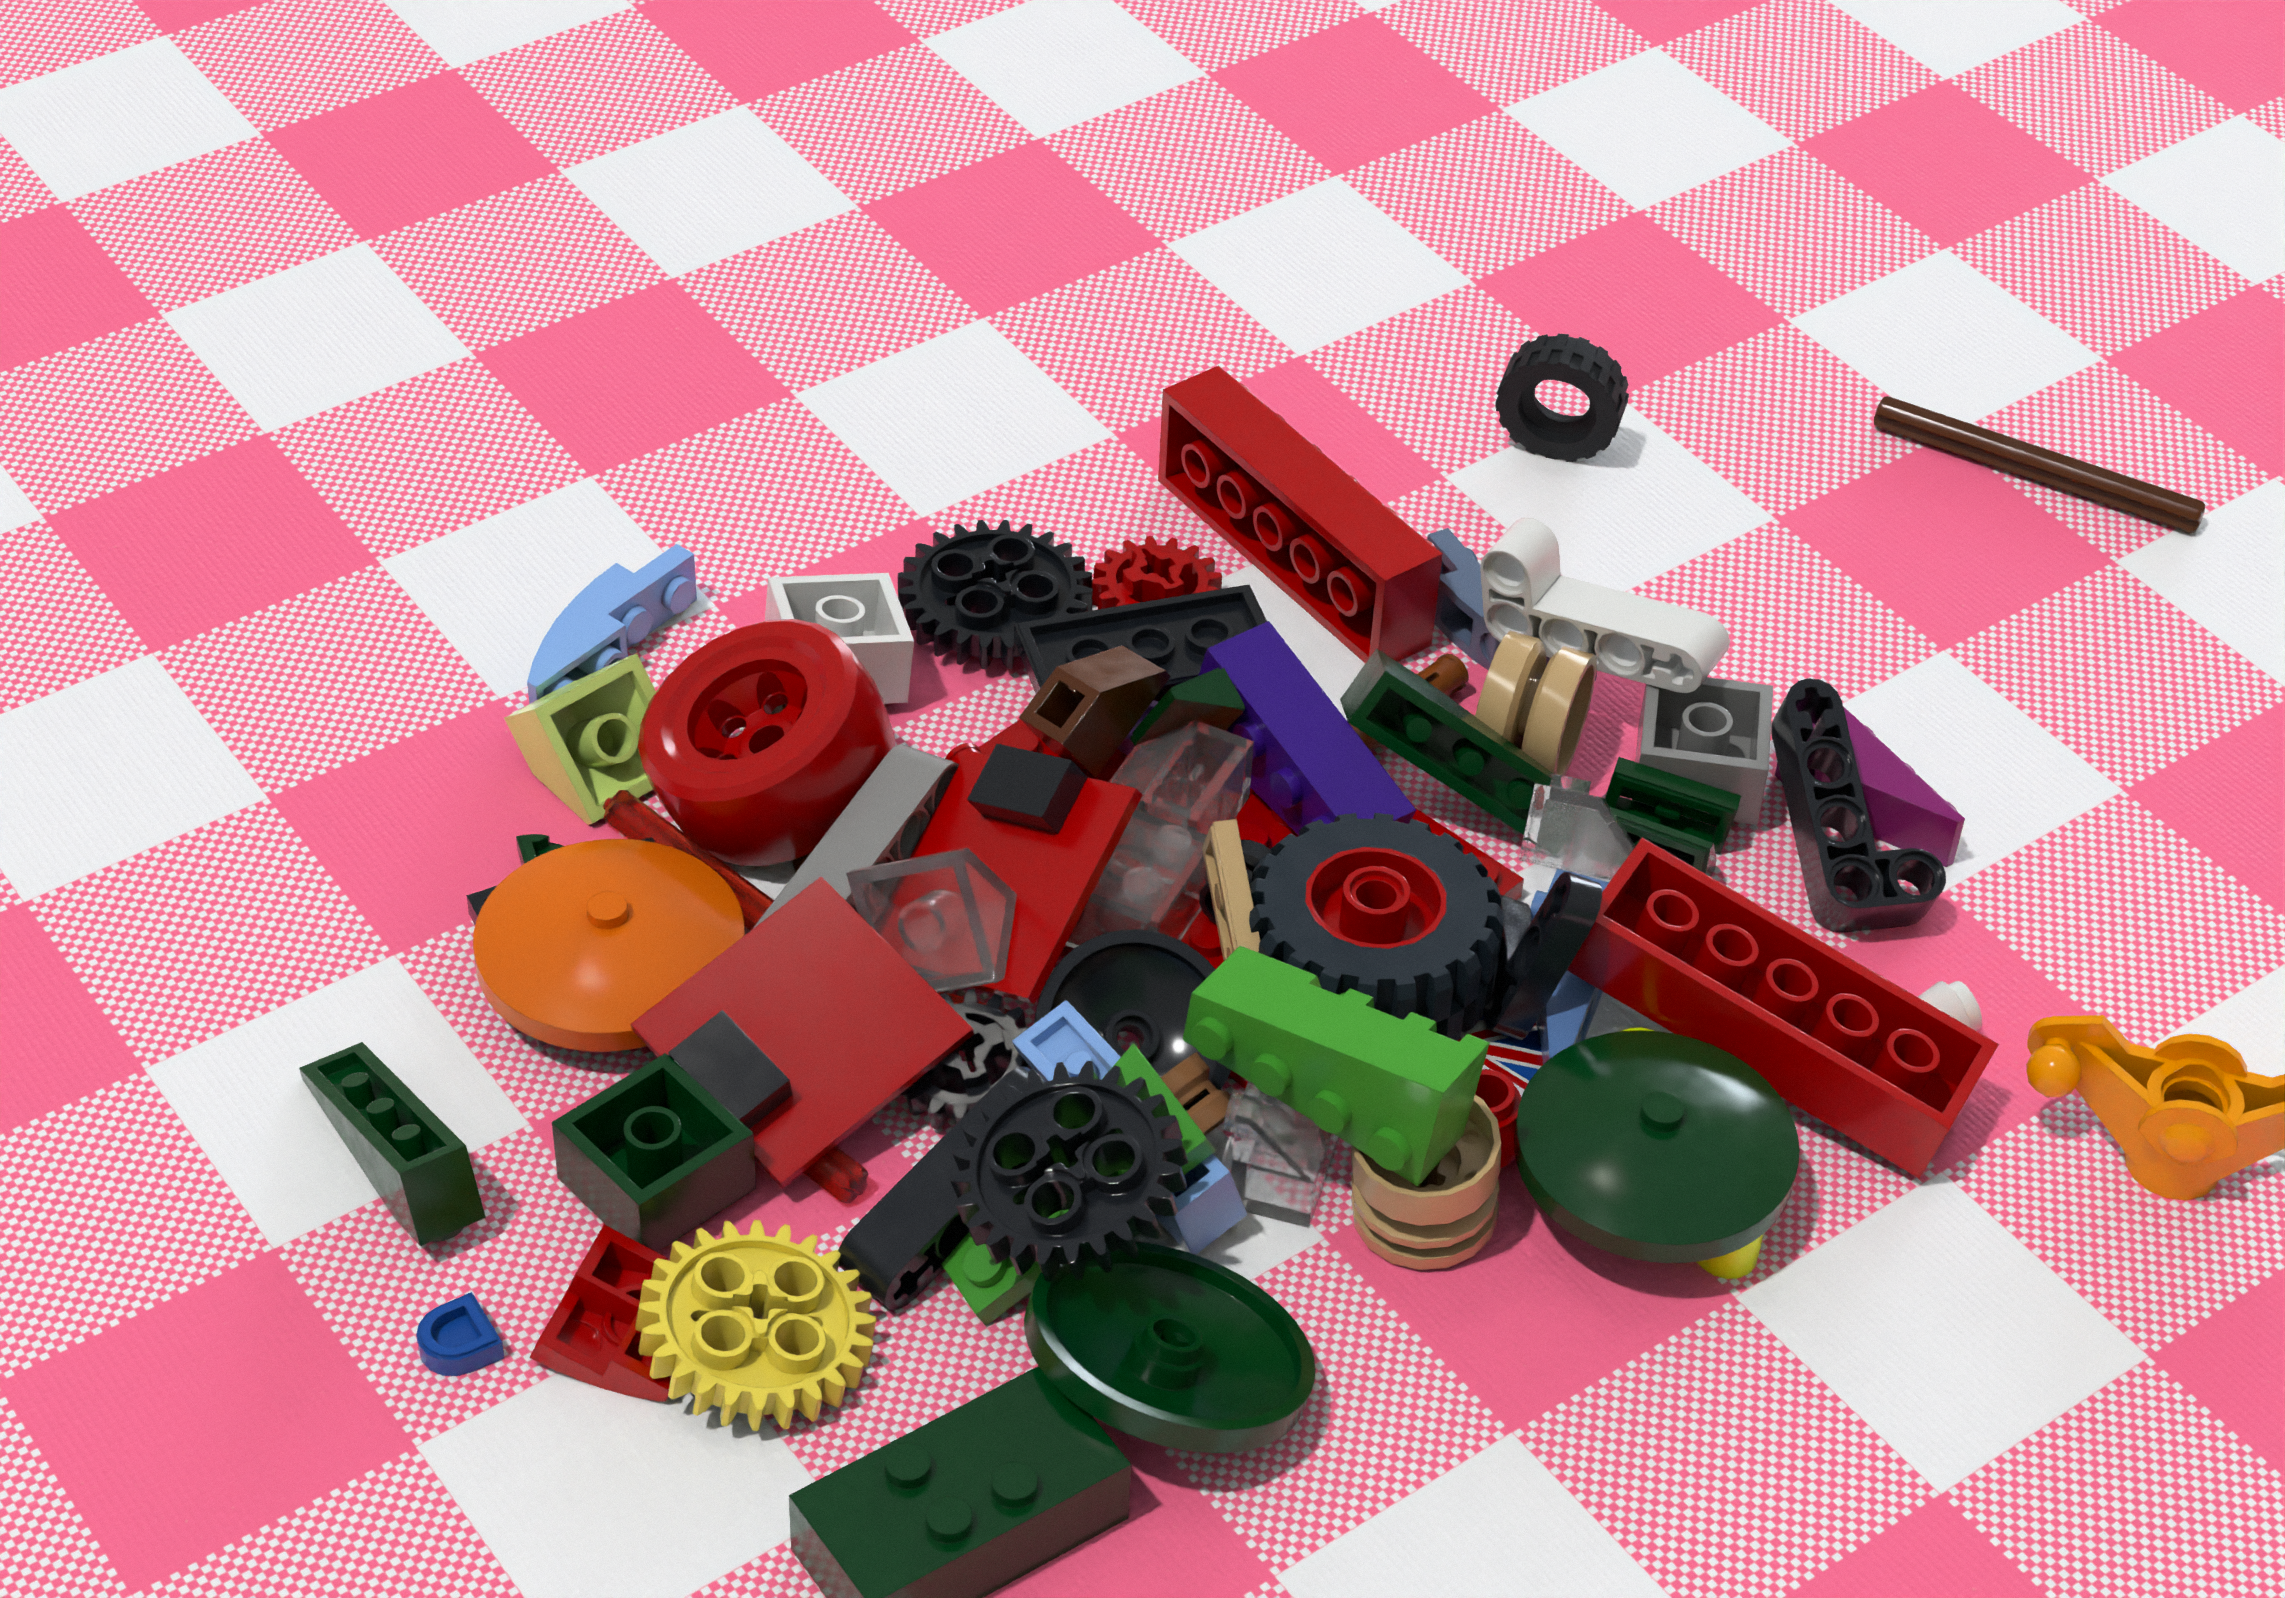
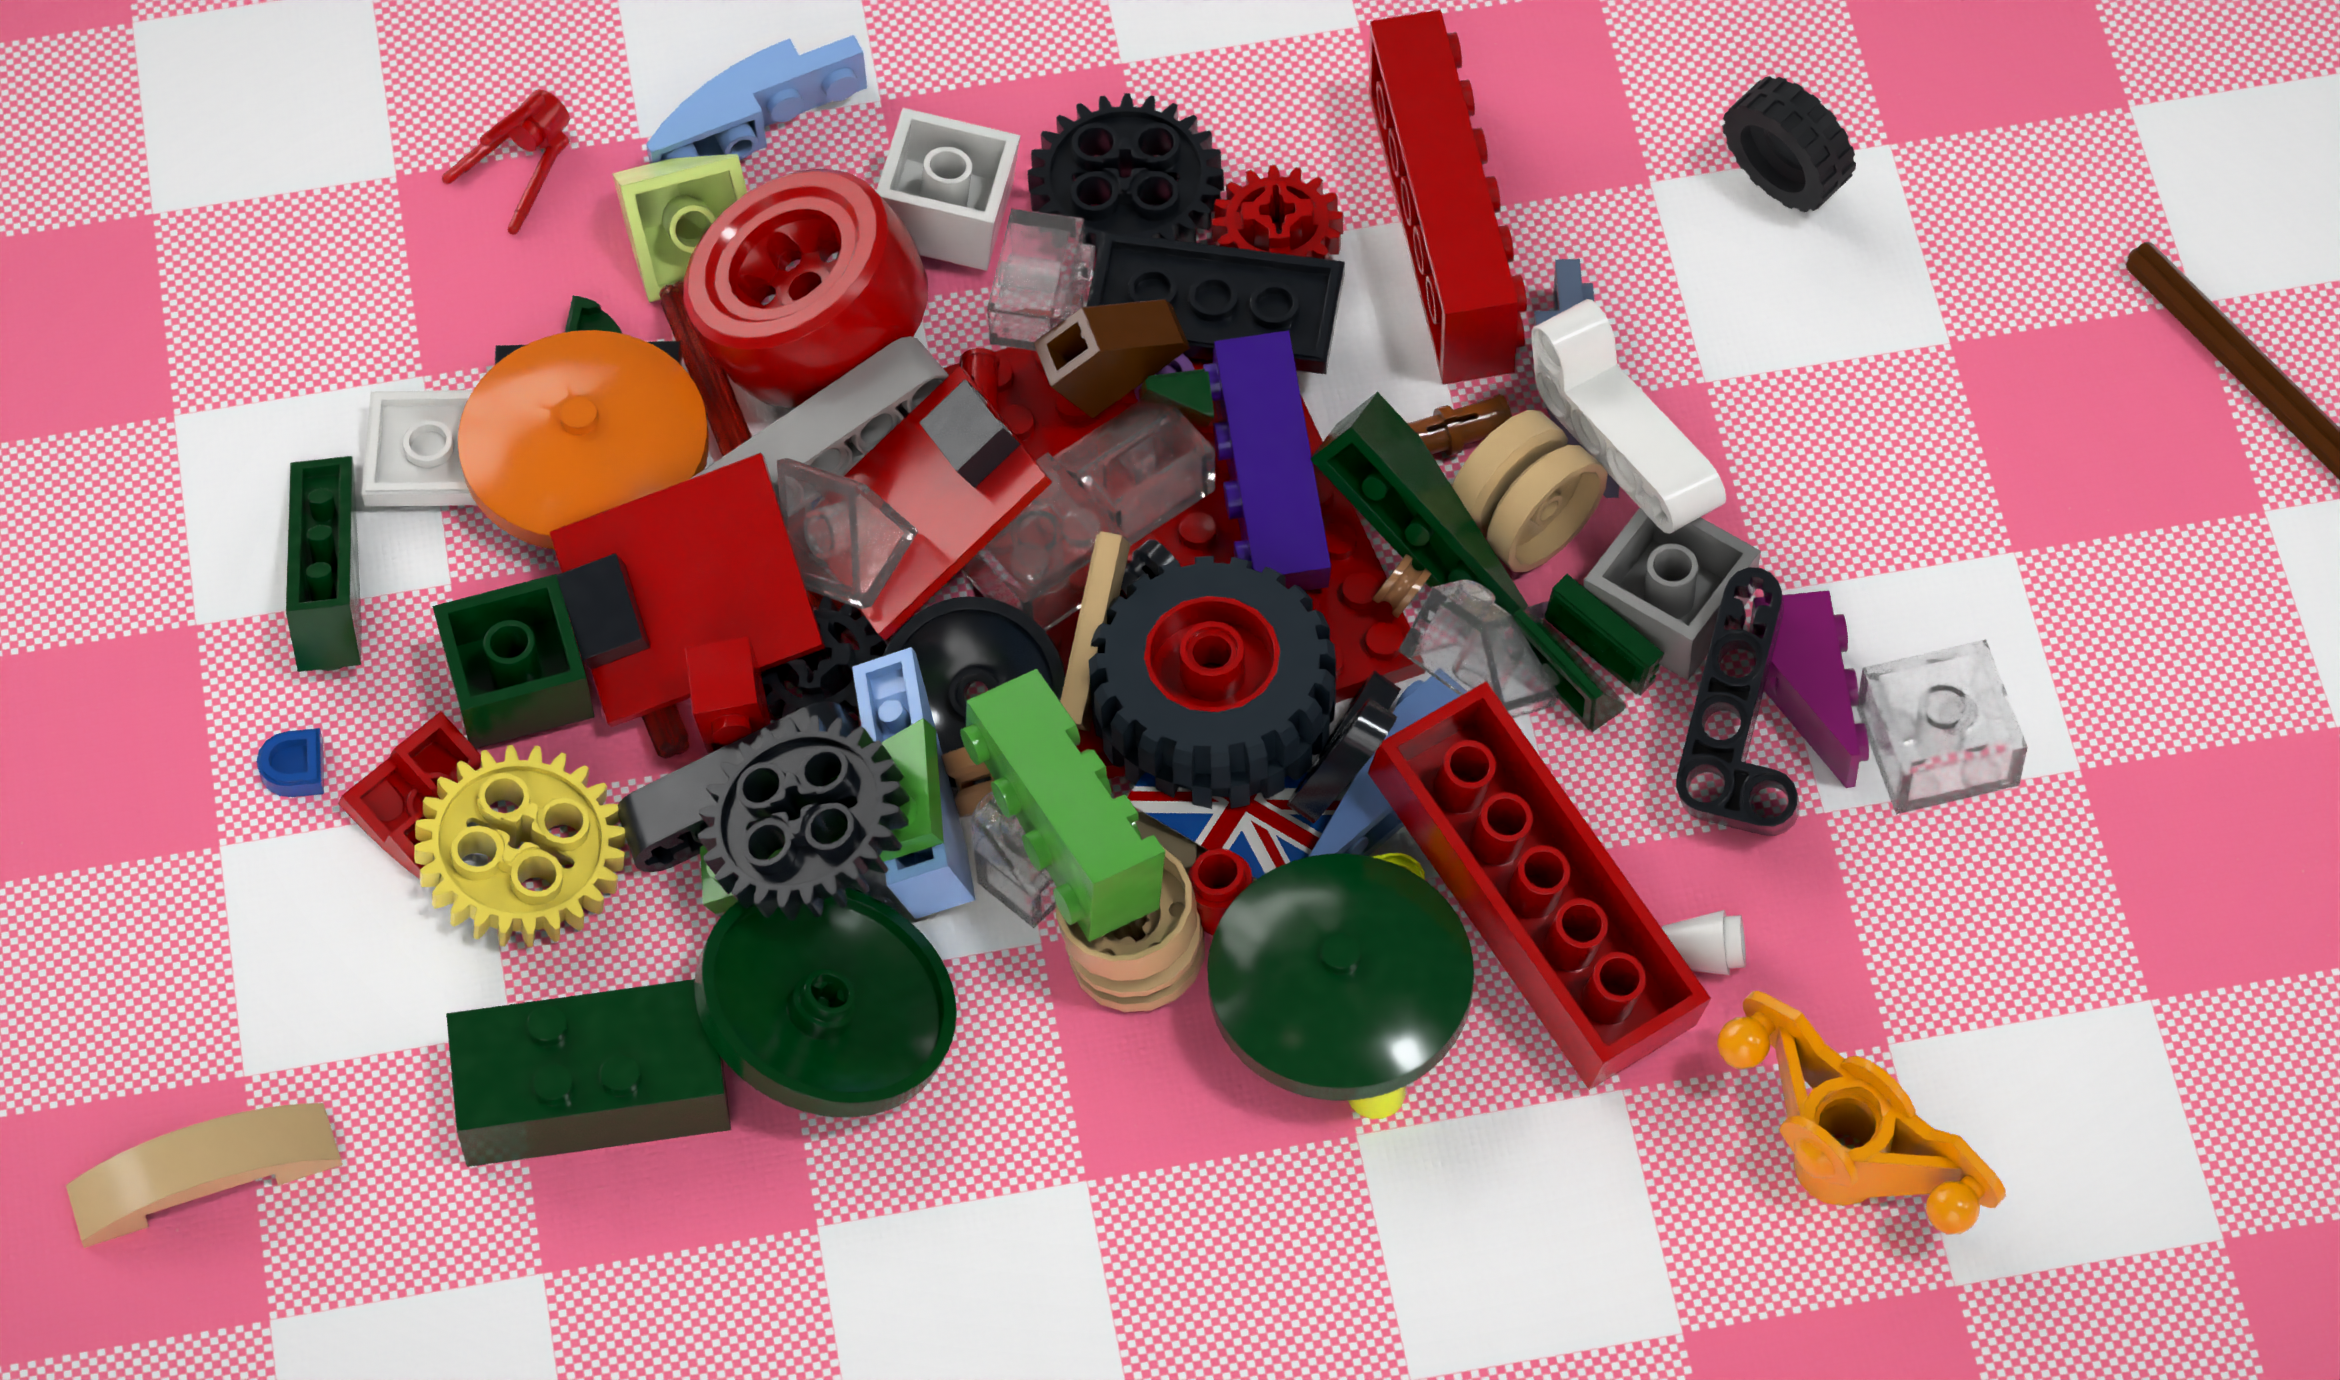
camera: 30 degrees right, 15 degrees up
(391, 712) = (531, 126): none -> red plant
(434, 1011) = (414, 449): none -> white plate
(906, 1100) = (726, 691): none -> red slope
(983, 673) = (1038, 277): none -> clear brick
(1475, 816) = (1401, 586): none -> medium nougat bush
(2012, 778) = (1941, 726): none -> clear brick

